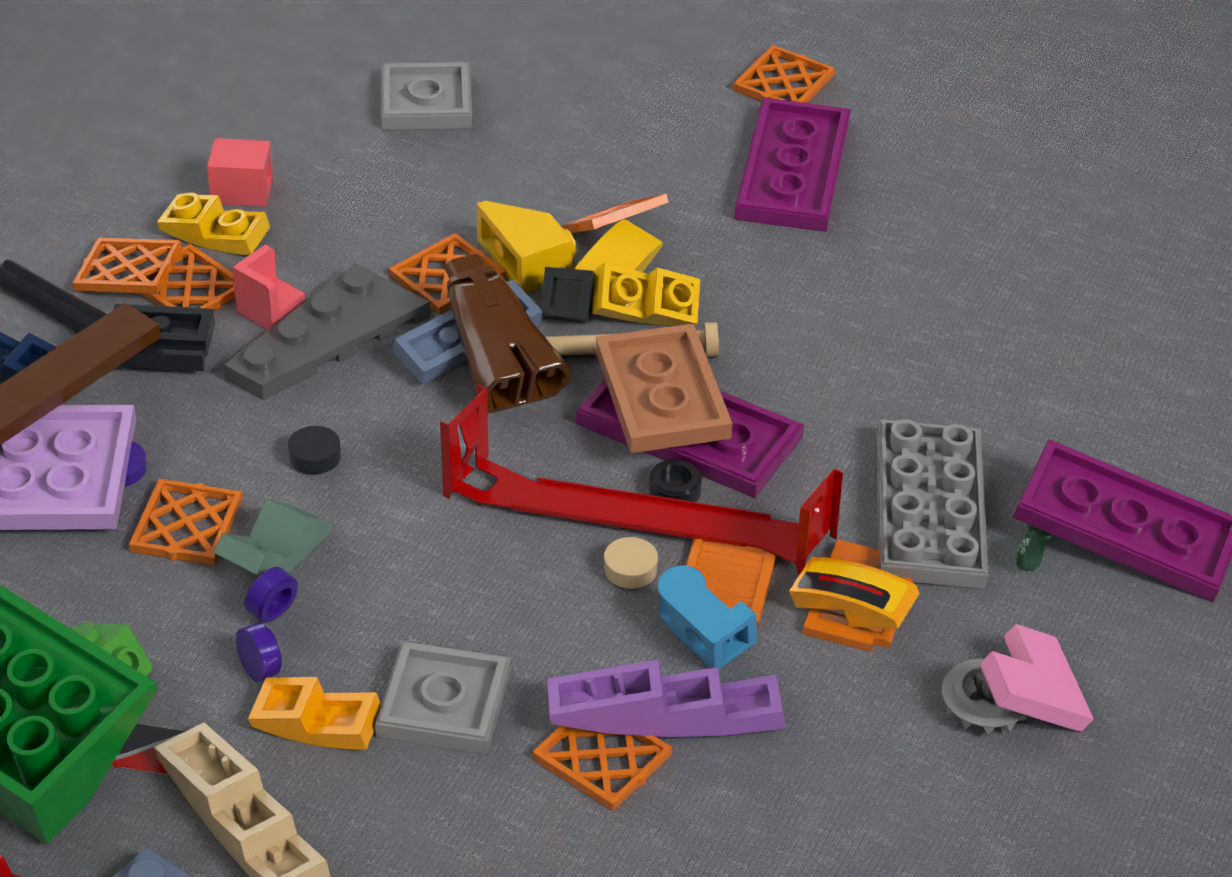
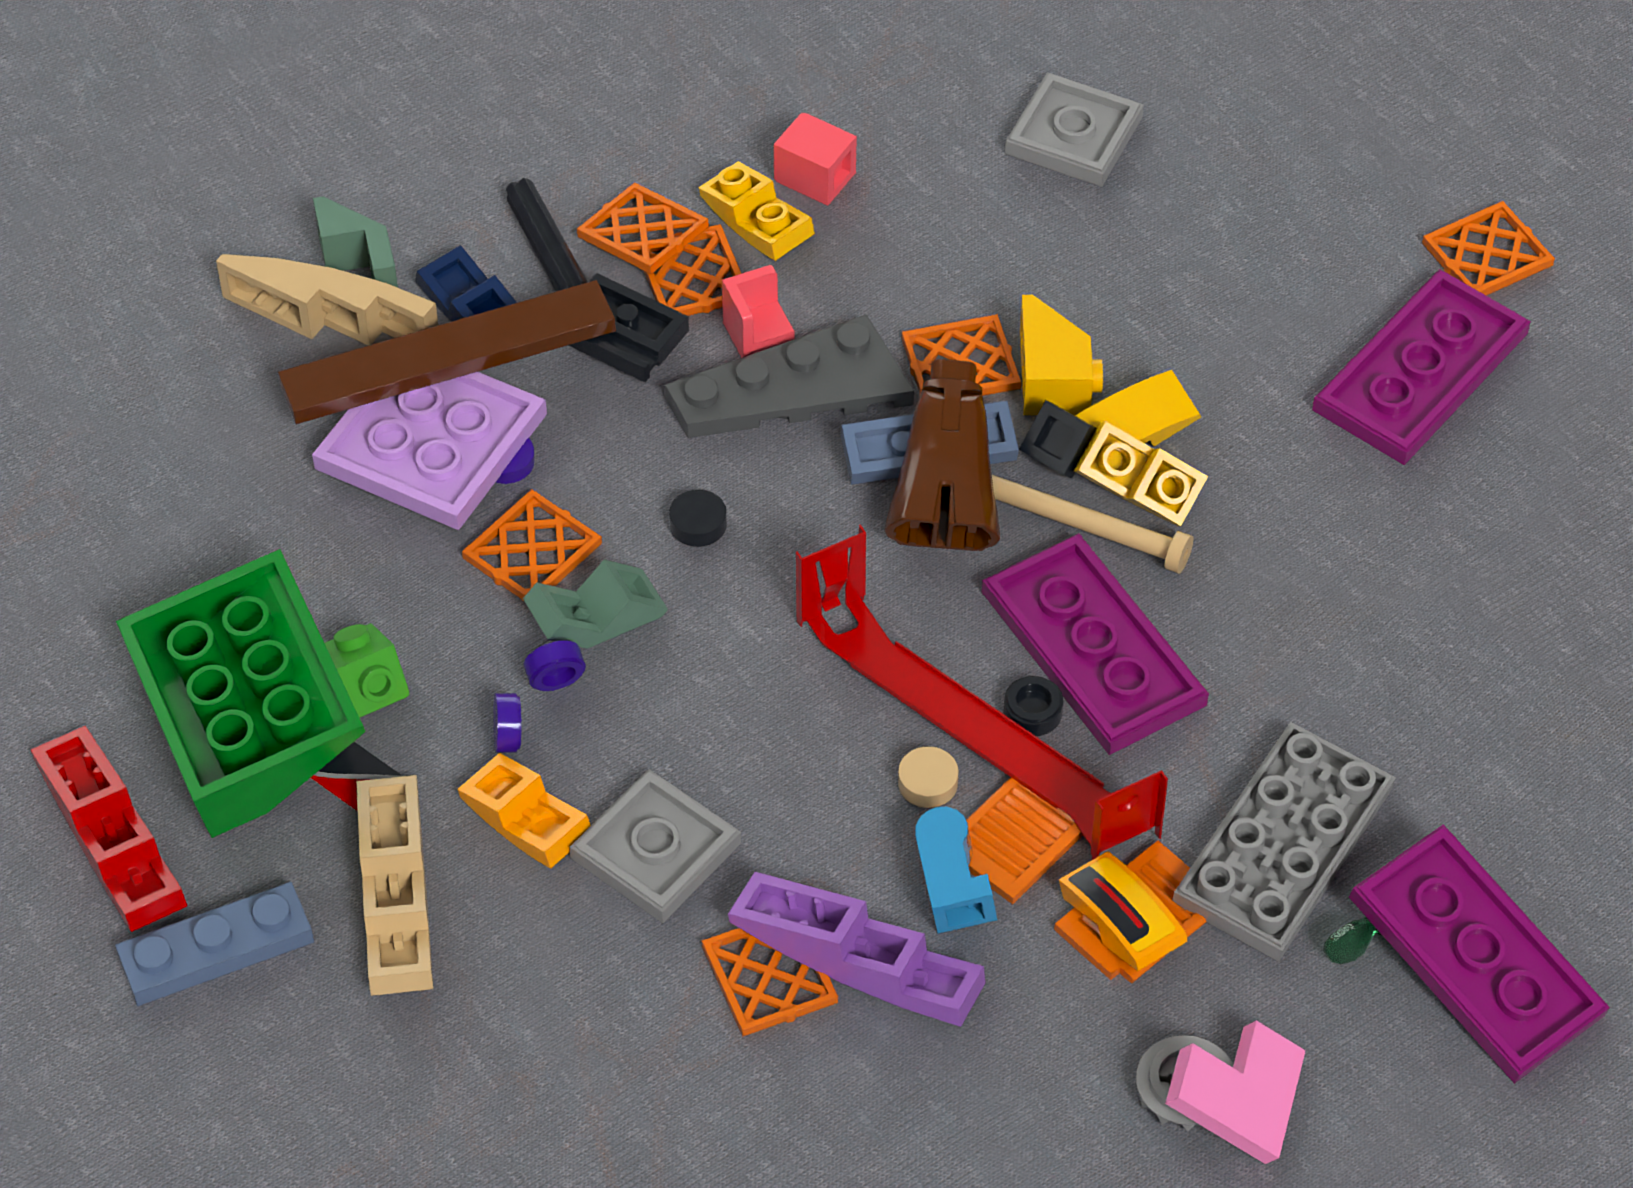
camera: 30 degrees right, 10 degrees up
(615, 213) = (1169, 359): orange window -> none
(663, 388) = (1076, 594): nougat plate -> none

